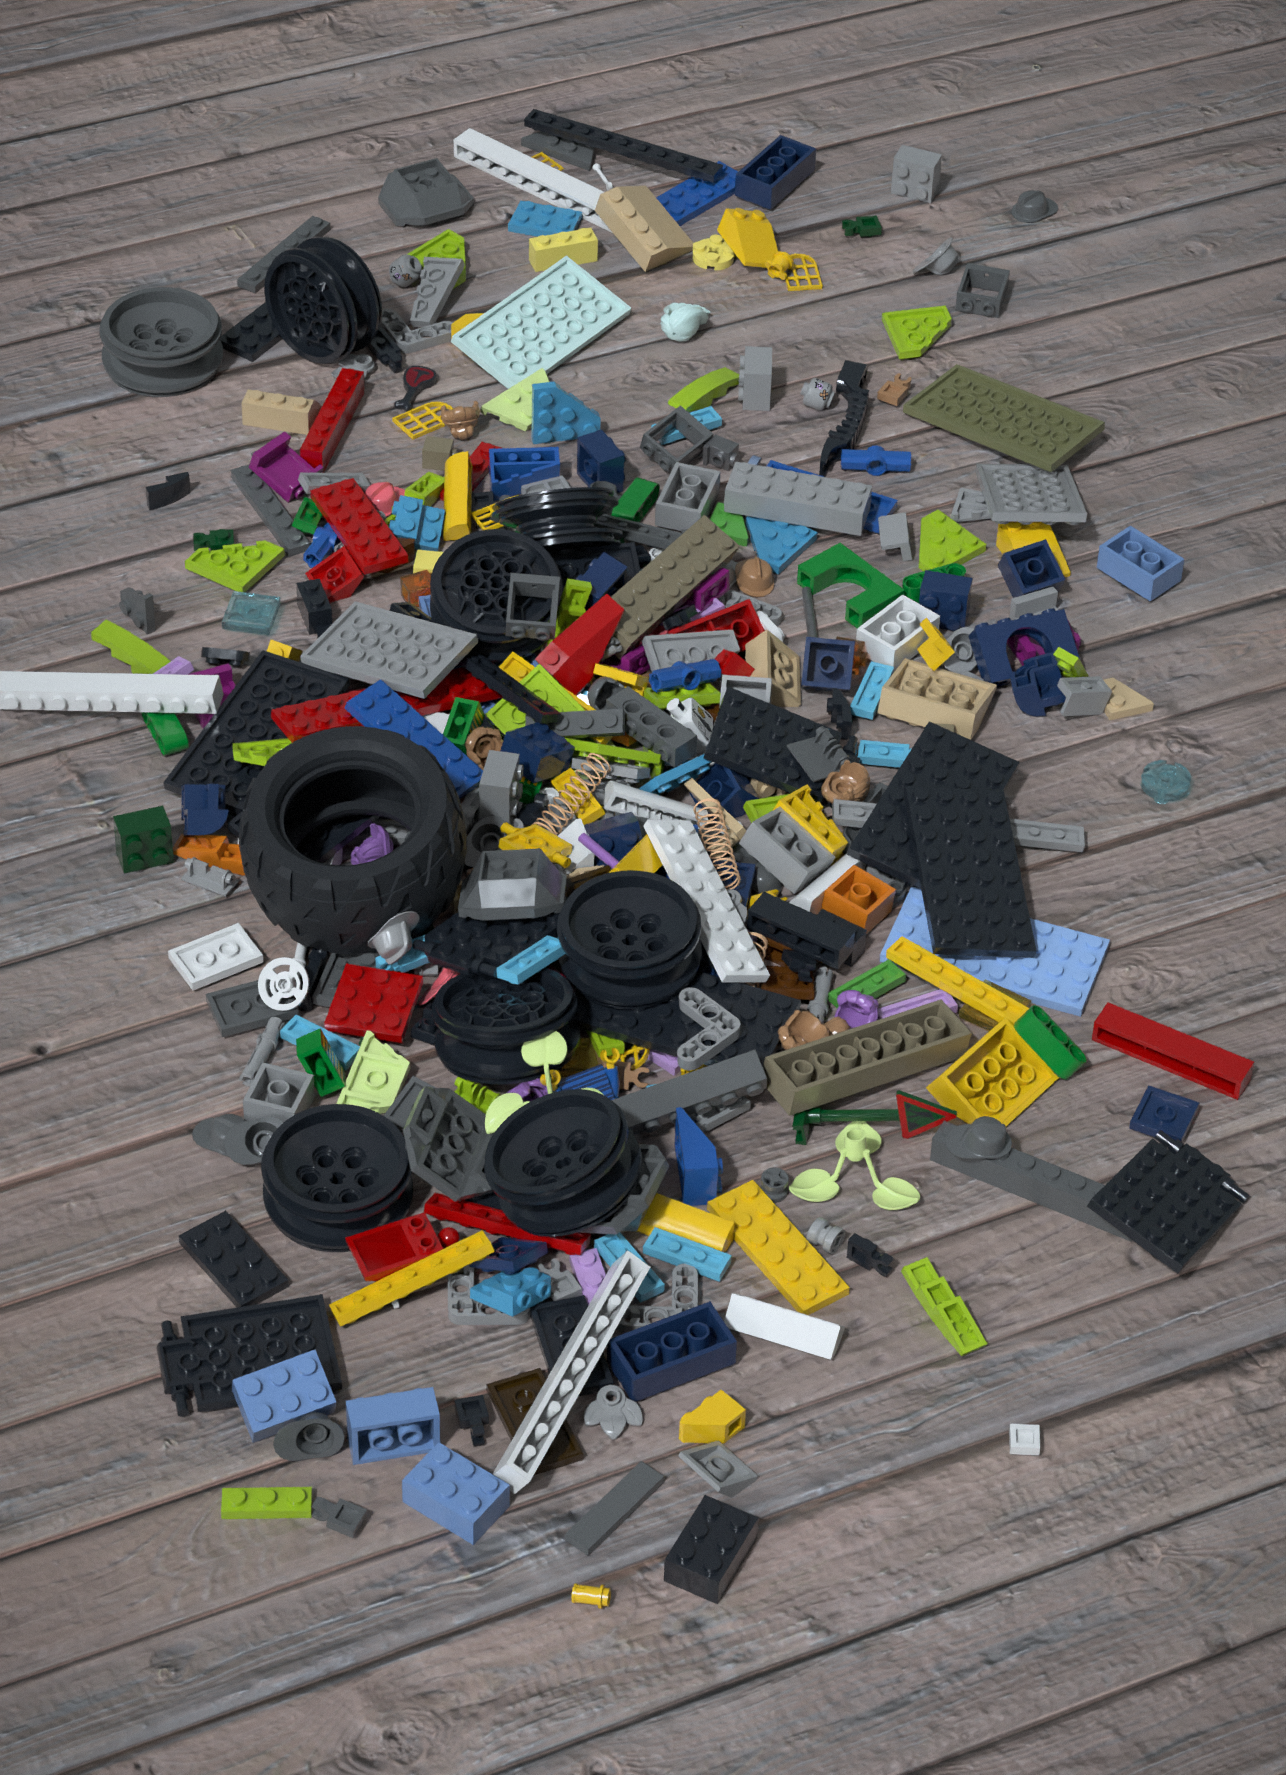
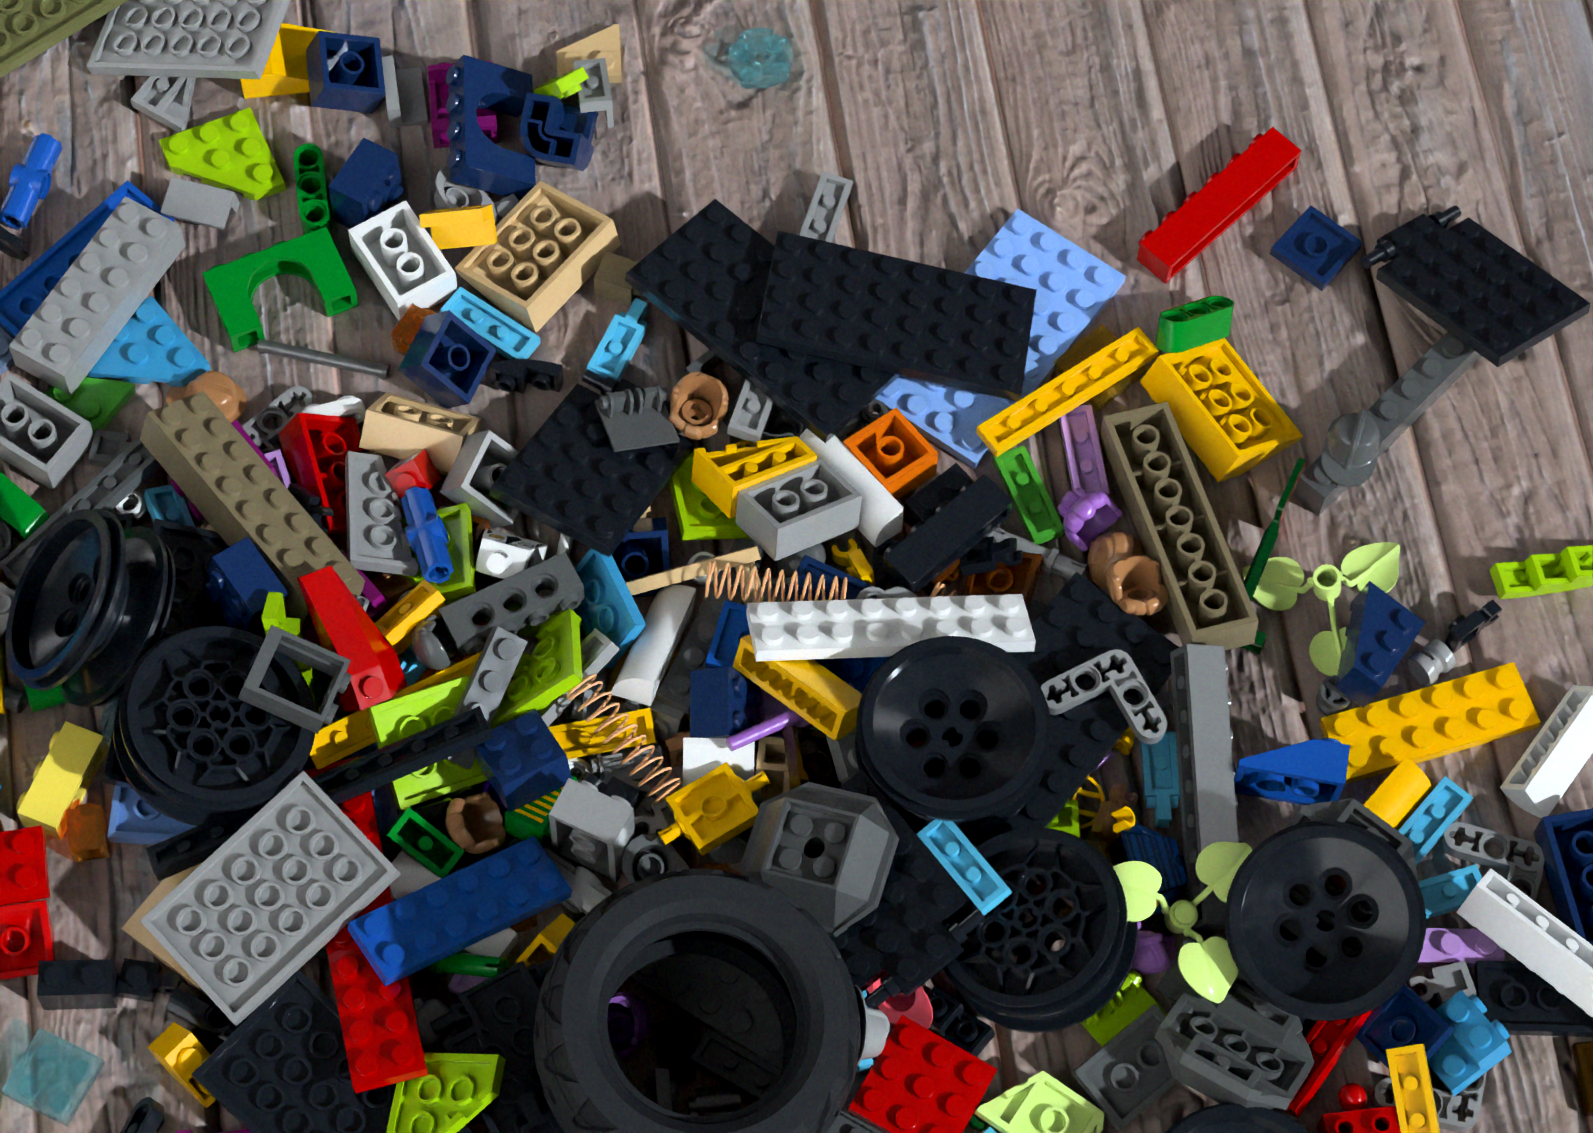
camera: 75 degrees left, 20 degrees up
(818, 1188) = (1375, 643): none -> dark blue wedge

